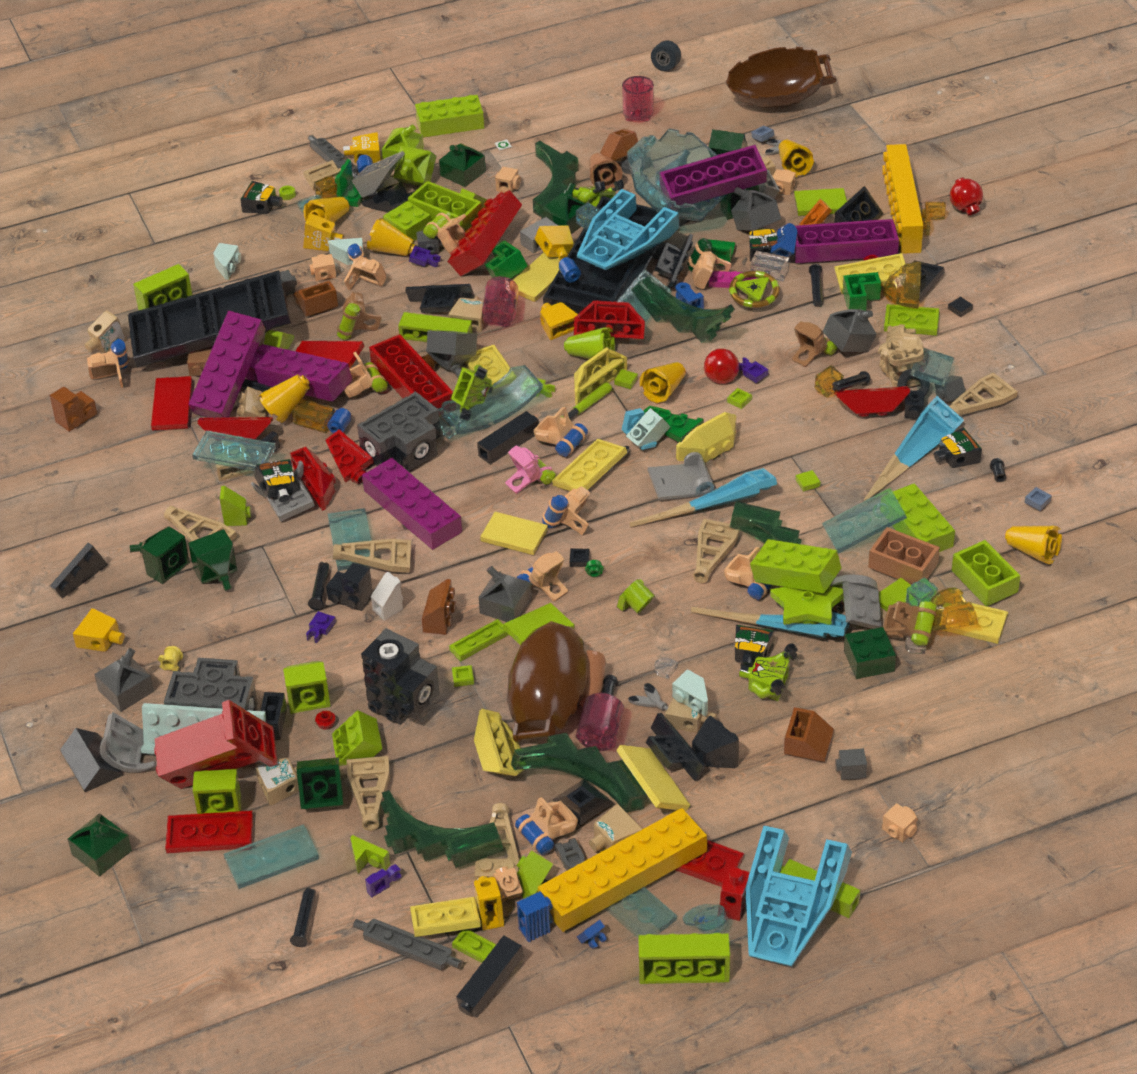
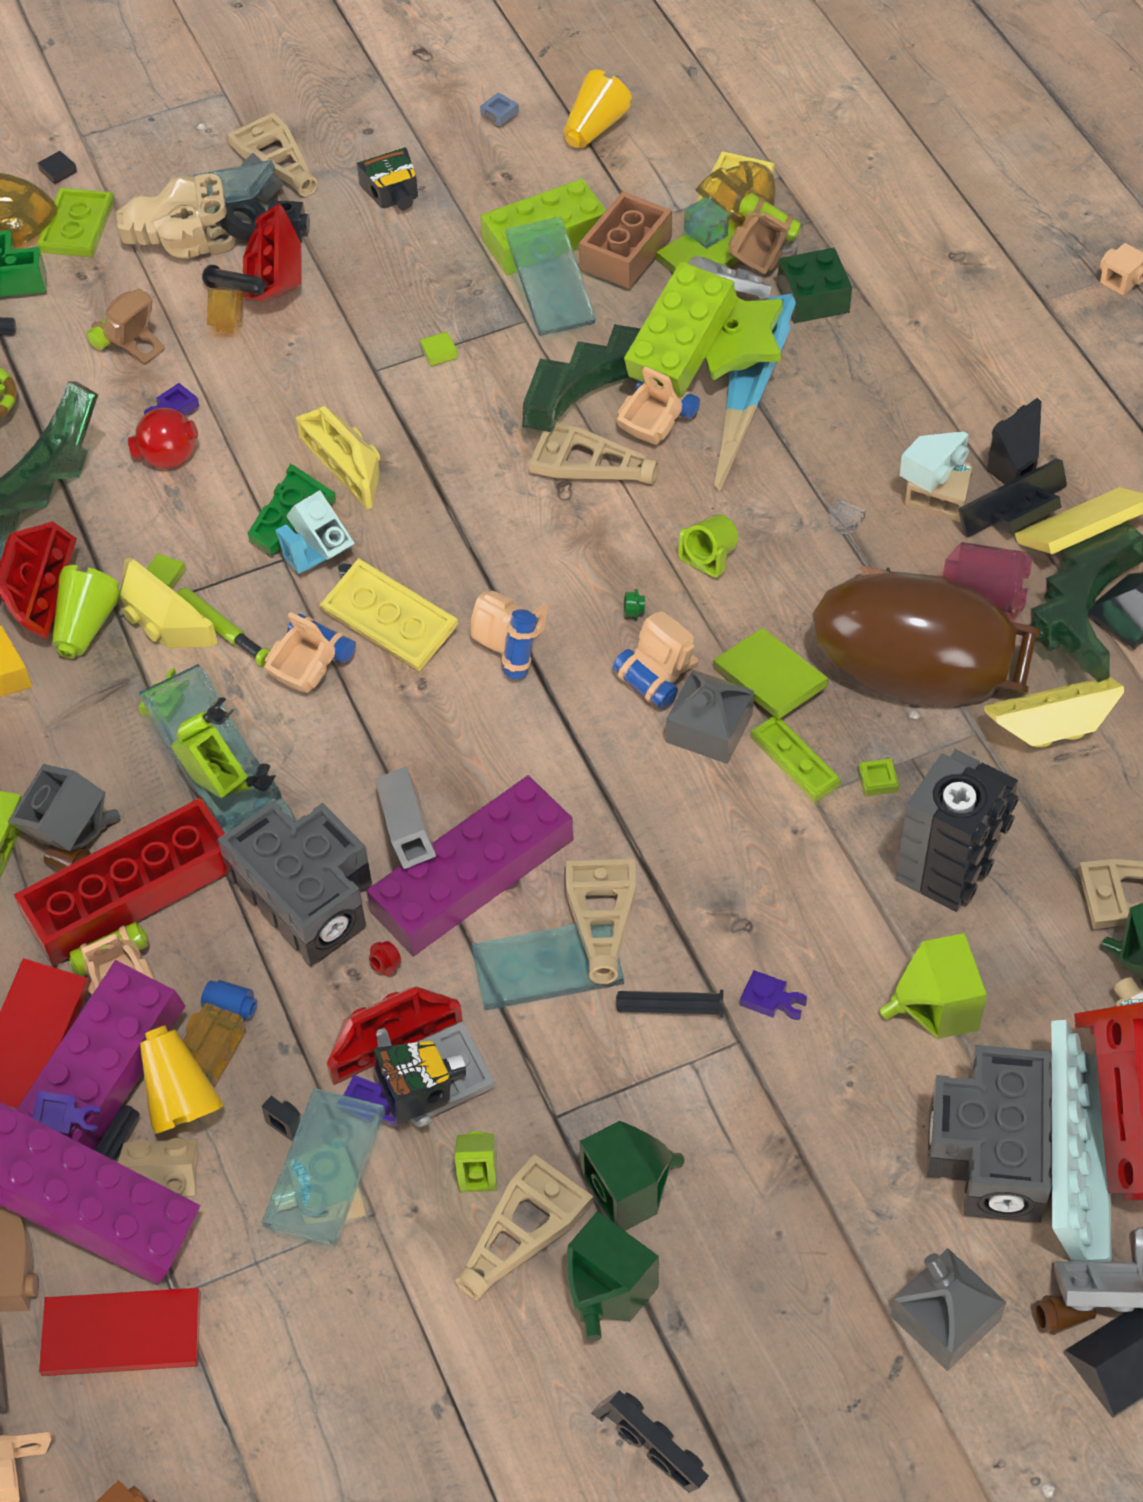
camera: 90 degrees left, 10 degrees up
(97, 632) = (809, 1380): yellow torso -> none
(170, 659) = (873, 1234): light yellow brick -> none
(238, 426) = (233, 1176): red wedge -> none
(265, 353) = (59, 1112): none -> dark purple plate
(275, 710) = (1015, 1030): black brick -> none
(325, 719) = (994, 975): red plate -> none
(347, 454) = (323, 983): red wing -> none
(351, 587) = (696, 939): black brick -> none
(357, 738) = (1048, 913): lime slope -> none
(387, 597) = (719, 880): white slope -> none
(436, 469) = (405, 817): none -> light grey brick
(439, 609) = (744, 802): dark orange slope -> none
(490, 360) = (112, 764): light yellow tile -> none
(506, 437) = (306, 729): black brick -> none
(514, 533) = (541, 718): light yellow tile -> none
(529, 467) = (395, 690): bright pink piece -> none
(579, 557) = (601, 628): black tile -> none
(651, 700) = (912, 532): light grey piece -> none
(661, 381) = (194, 511): yellow cone -> none
(683, 479) = (426, 494): light grey door -> none
(738, 489) = (461, 421): medium azure plate -> none
(739, 398) = (234, 426): lime tile -> none
(752, 643) = (805, 413): torso -> none
(769, 674) = (867, 393): lime torso -> none
(808, 735) = (980, 358): dark orange slope -> none
(850, 330) = (113, 268): dark grey piece -> none
(851, 764) = (1031, 307): dark grey brick -> none
(931, 426) = (349, 205): medium azure plate -> none
(985, 573) = (658, 159): lime brick -> none
(997, 466) = (434, 145): black pin -> none

